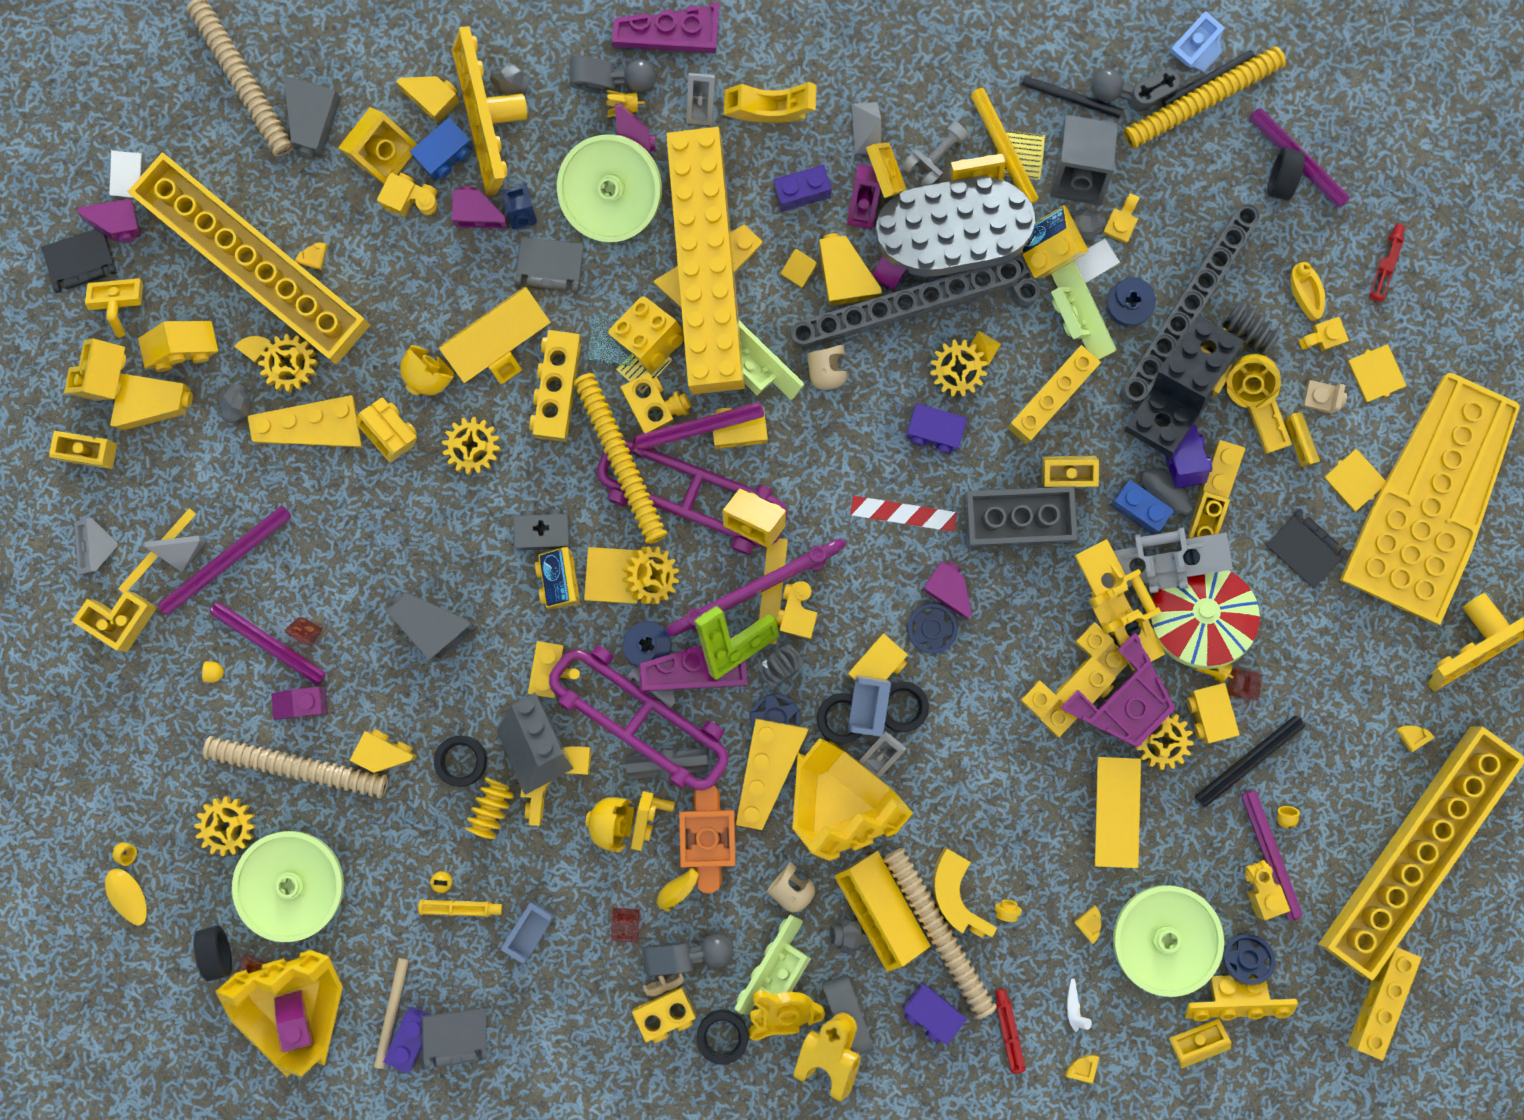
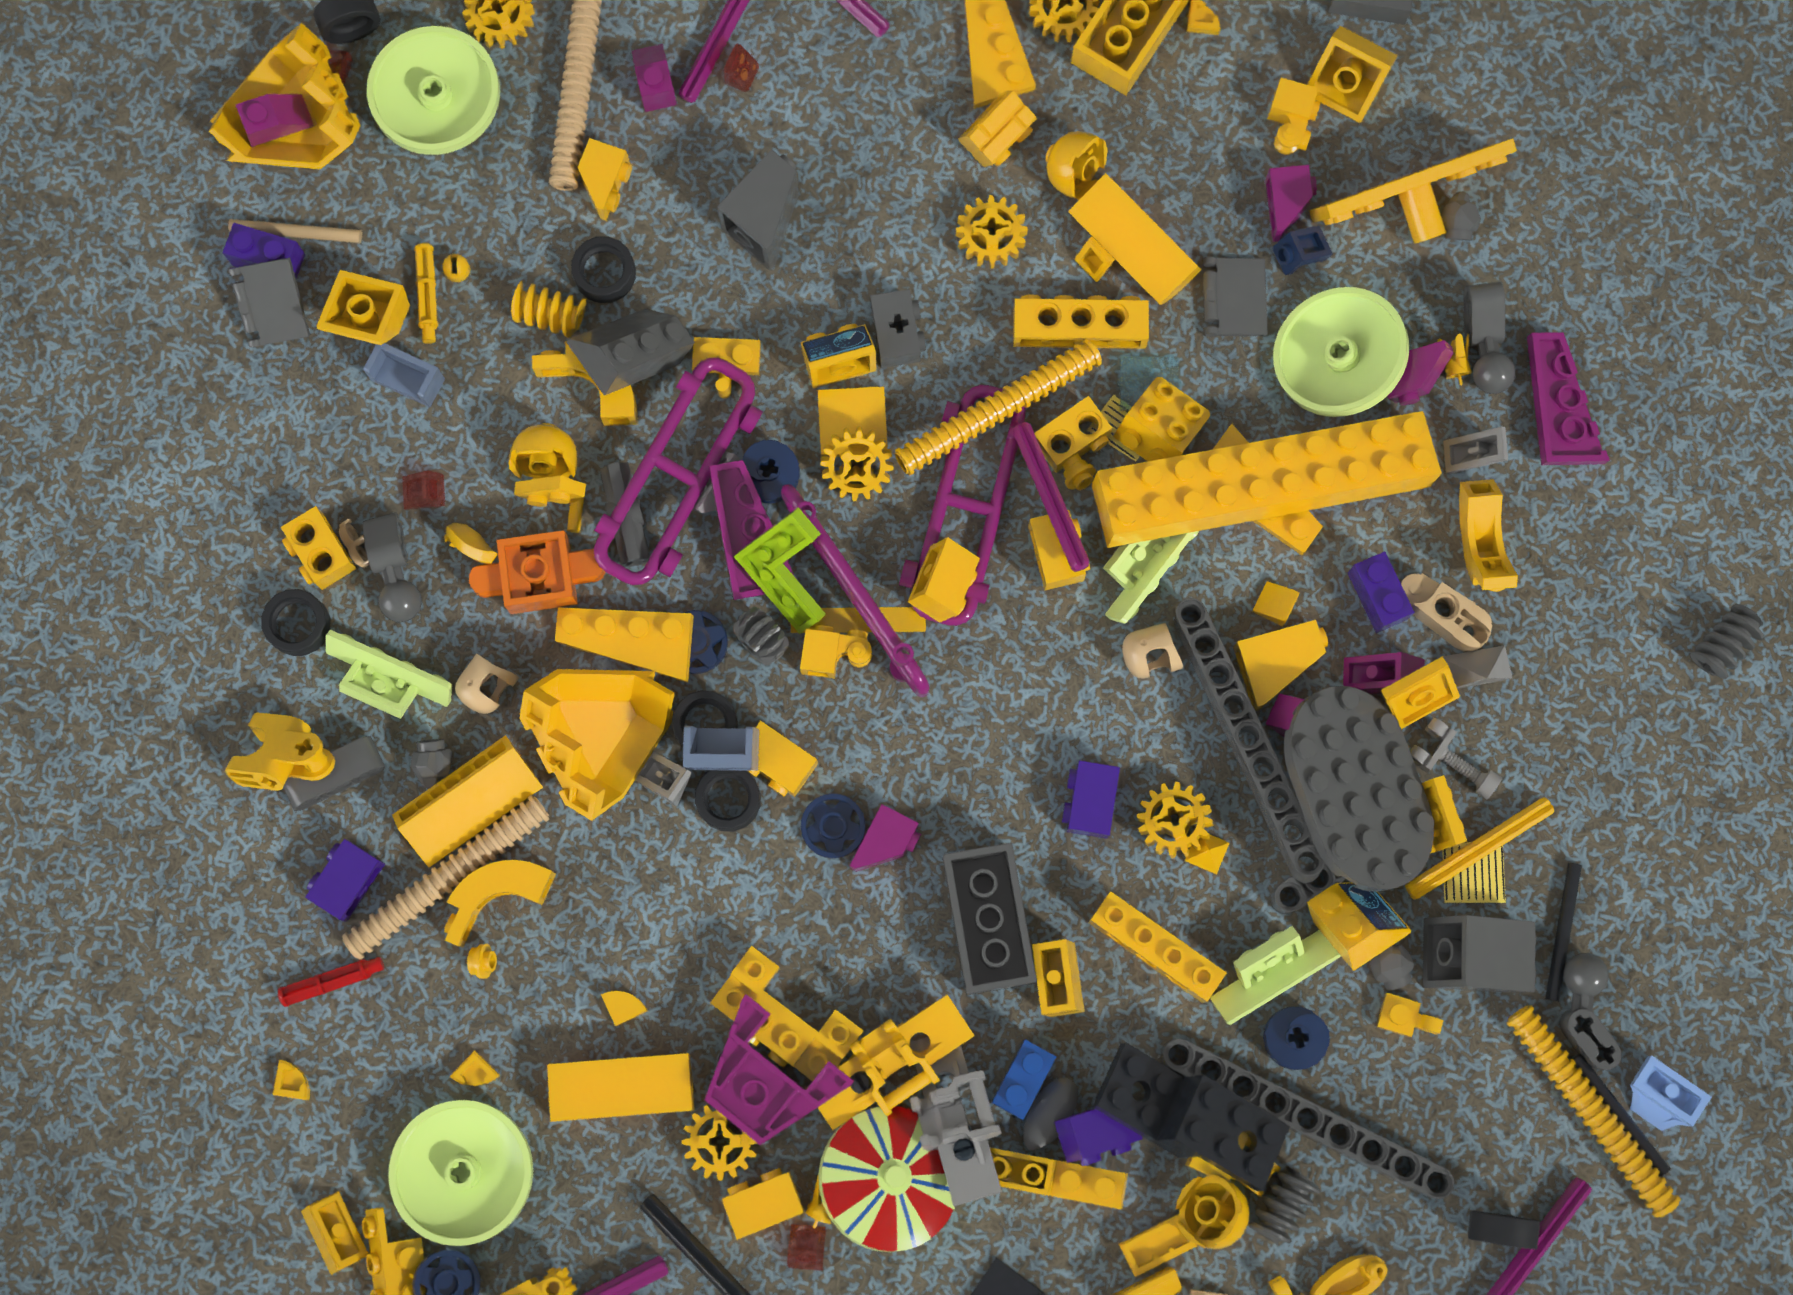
camera: 90 degrees right, 5 degrees down
(431, 95) = (1425, 126): yellow slope -> none
(442, 149) = (1358, 148): blue brick -> none
(472, 959) = (364, 308): none -> yellow slope
(782, 1014) = (328, 689): yellow tile -> none
(809, 156) = (1425, 593): none -> tan piece
(903, 513) = (977, 774): sticker -> none
(1053, 804) = (623, 1006): none -> yellow tile
(1073, 1010) = (364, 1061): white bar -> none
(1097, 260) = (1346, 988): white sticker -> none

